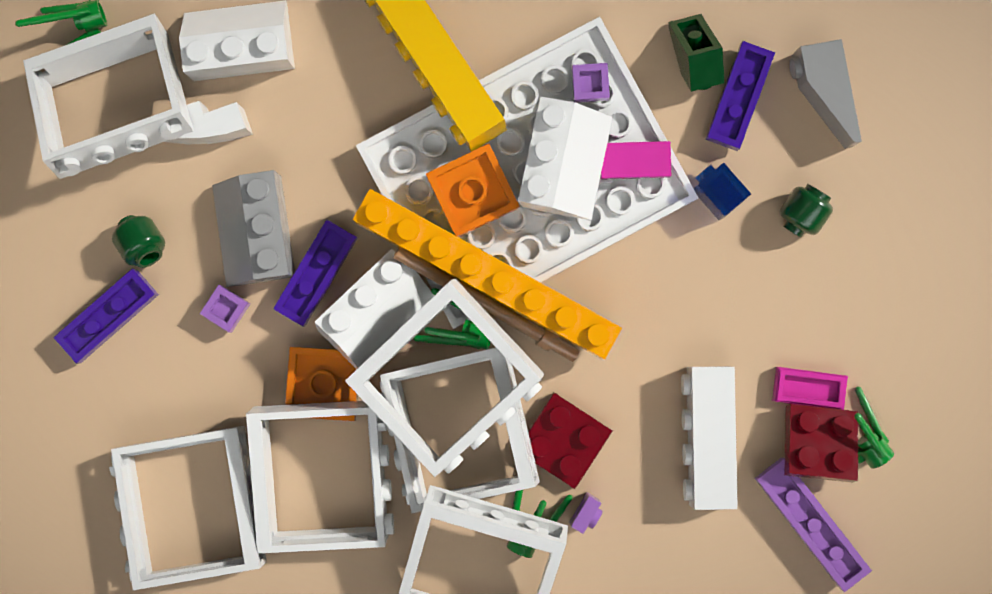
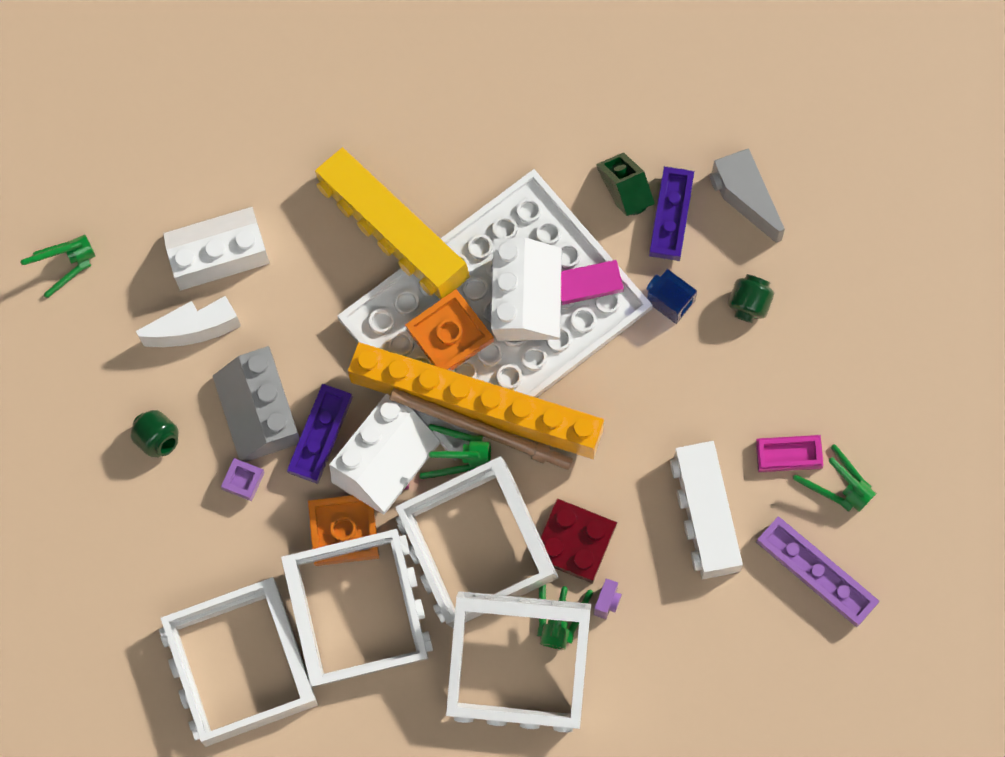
camera: 10 degrees left, 15 degrees down
(90, 56) = (90, 281): white window -> none
(106, 316) = (134, 506): dark purple plate -> none
(477, 433) = (412, 459): white window -> none
(590, 82) = (536, 222): medium lavender plate -> none
(821, 443) = (808, 496): dark red plate -> none

